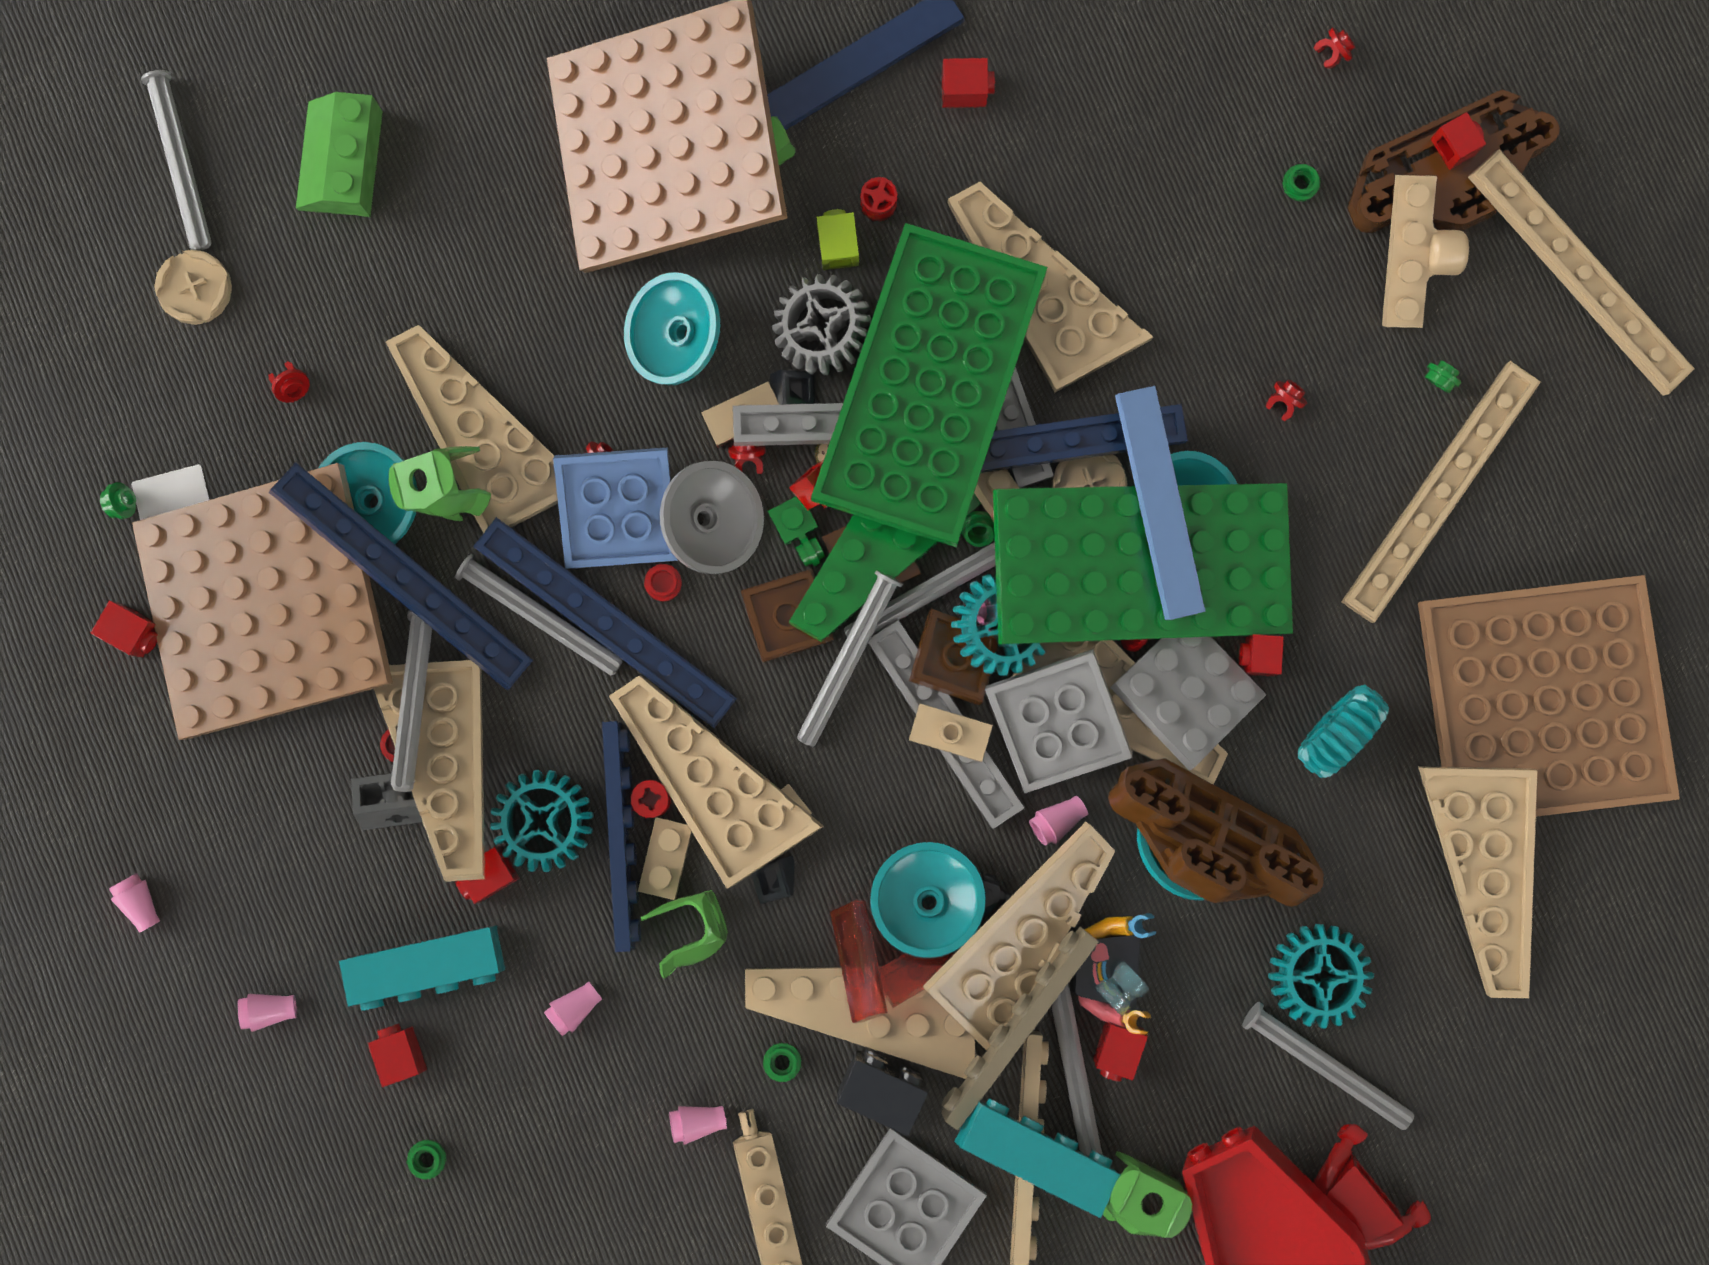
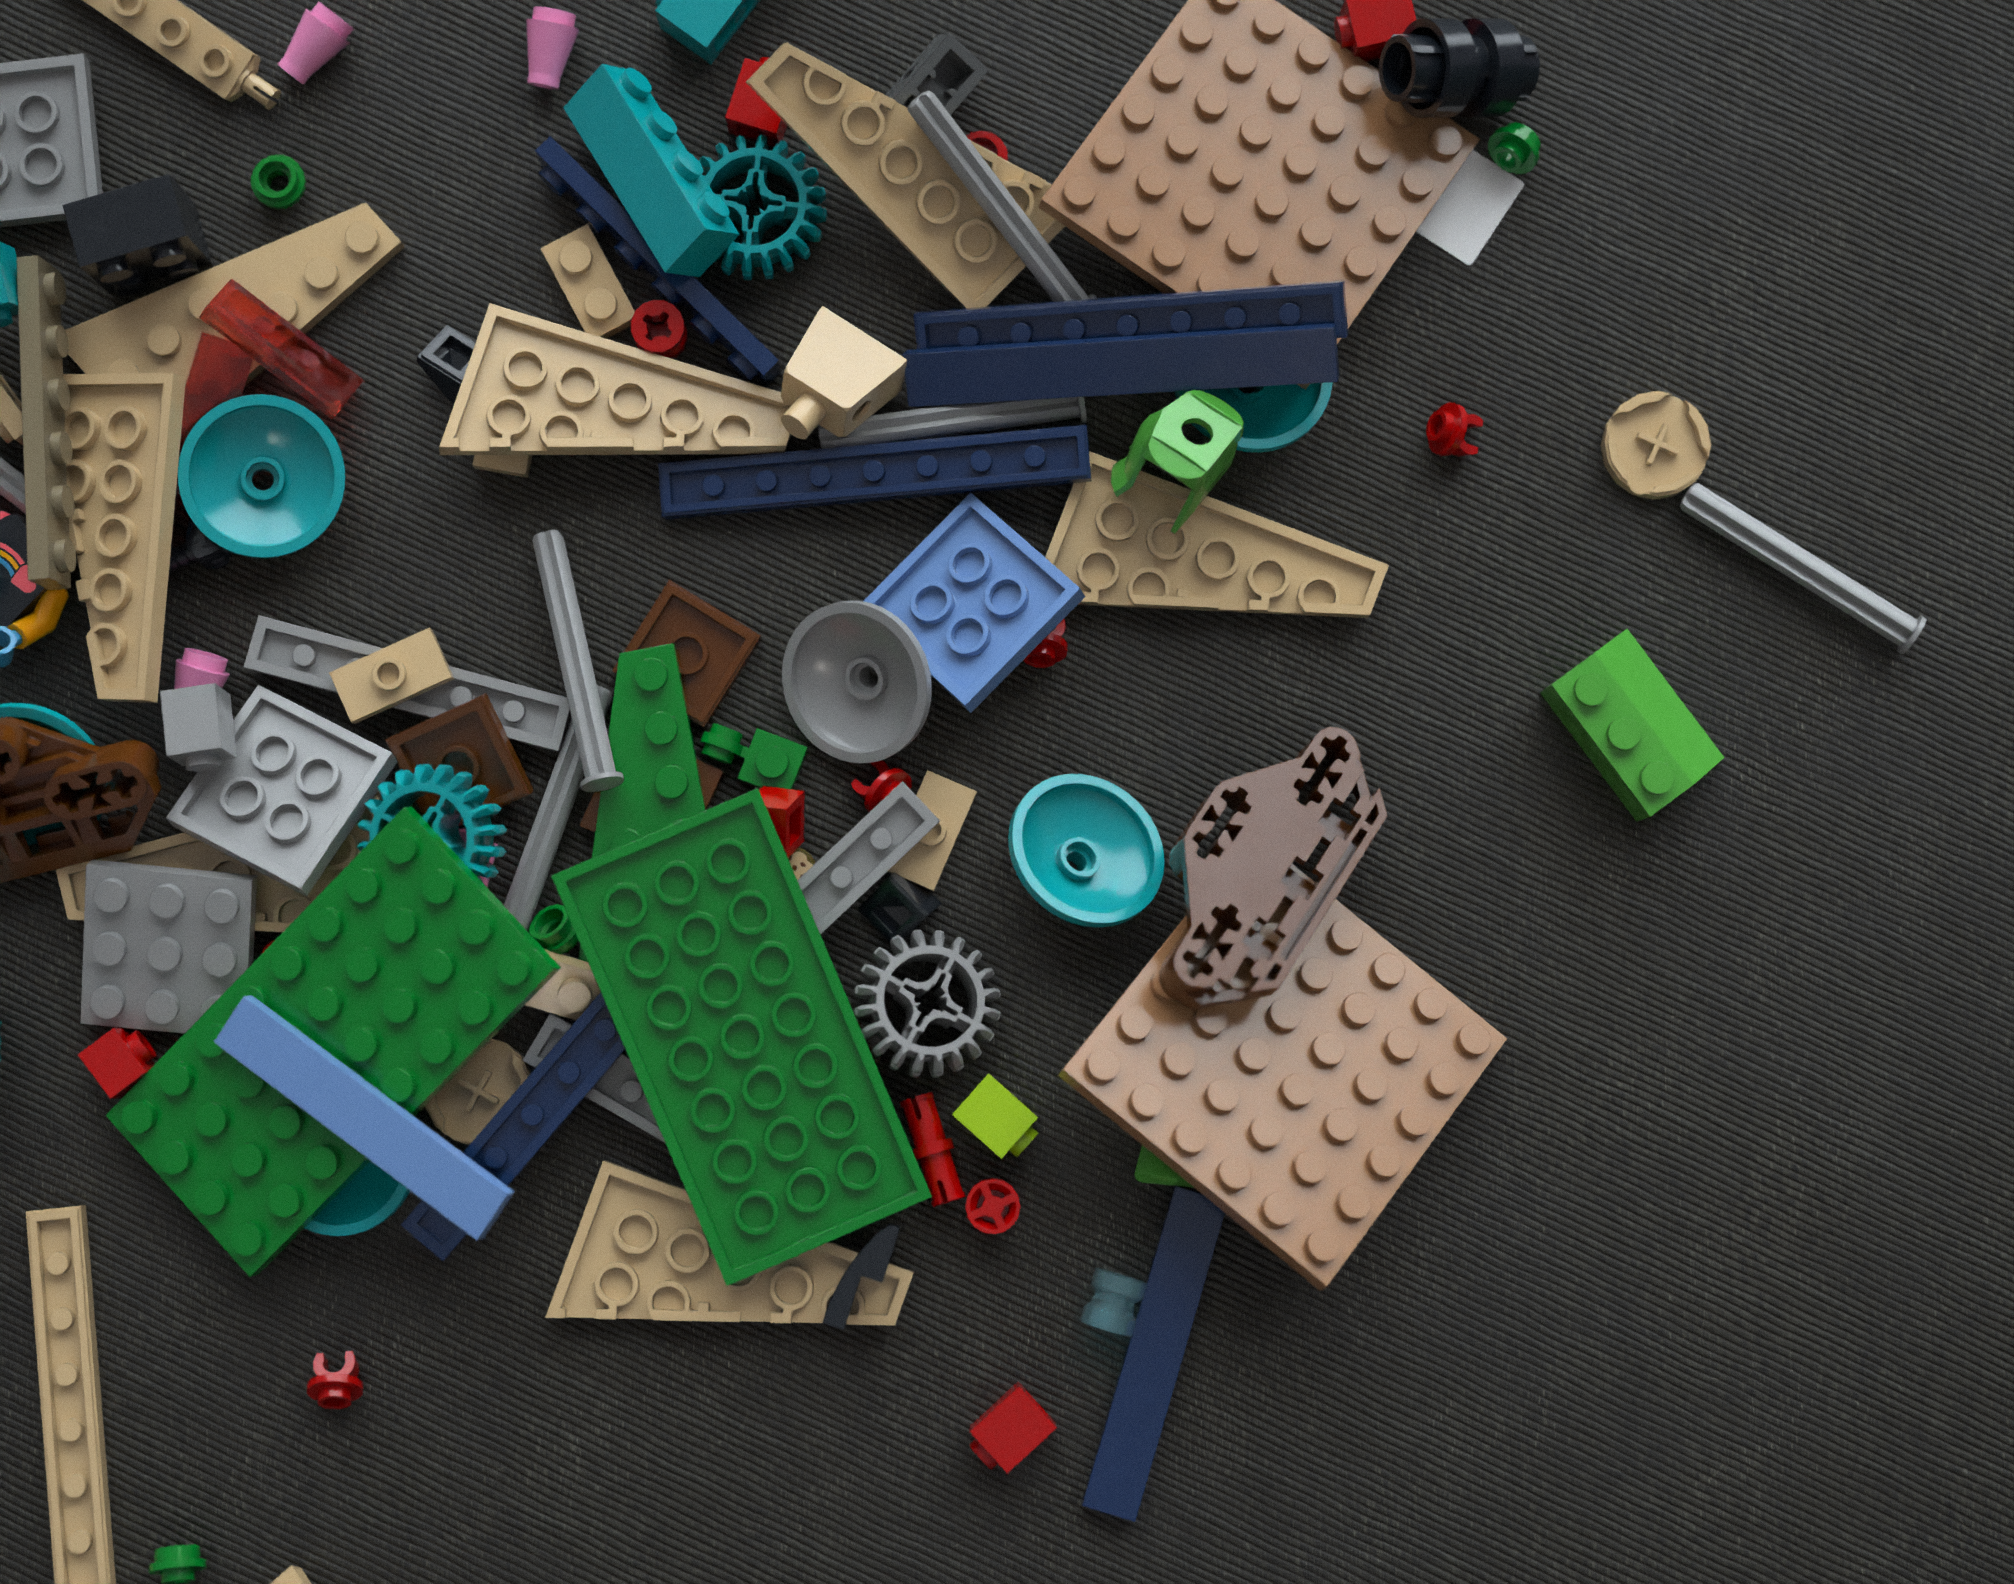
camera: 130 degrees right, 0 degrees up
(105, 562) = (1459, 67): none -> black piece
(425, 557) = (1122, 365): none -> dark blue tile
(577, 883) = (651, 170): none -> teal brick
(580, 687) = (838, 378): none -> tan torso
(600, 240) = (1250, 872): none -> connector
(663, 582) = (853, 571): red plate -> none
(714, 935) = (467, 213): bright green piece -> none
(863, 97) = (1113, 1302): none -> clear light blue wheel
(882, 253) = (932, 1149): none -> red pin
(964, 218) = (869, 1263): none -> black slope
(1075, 789) = (198, 726): none -> light grey brick

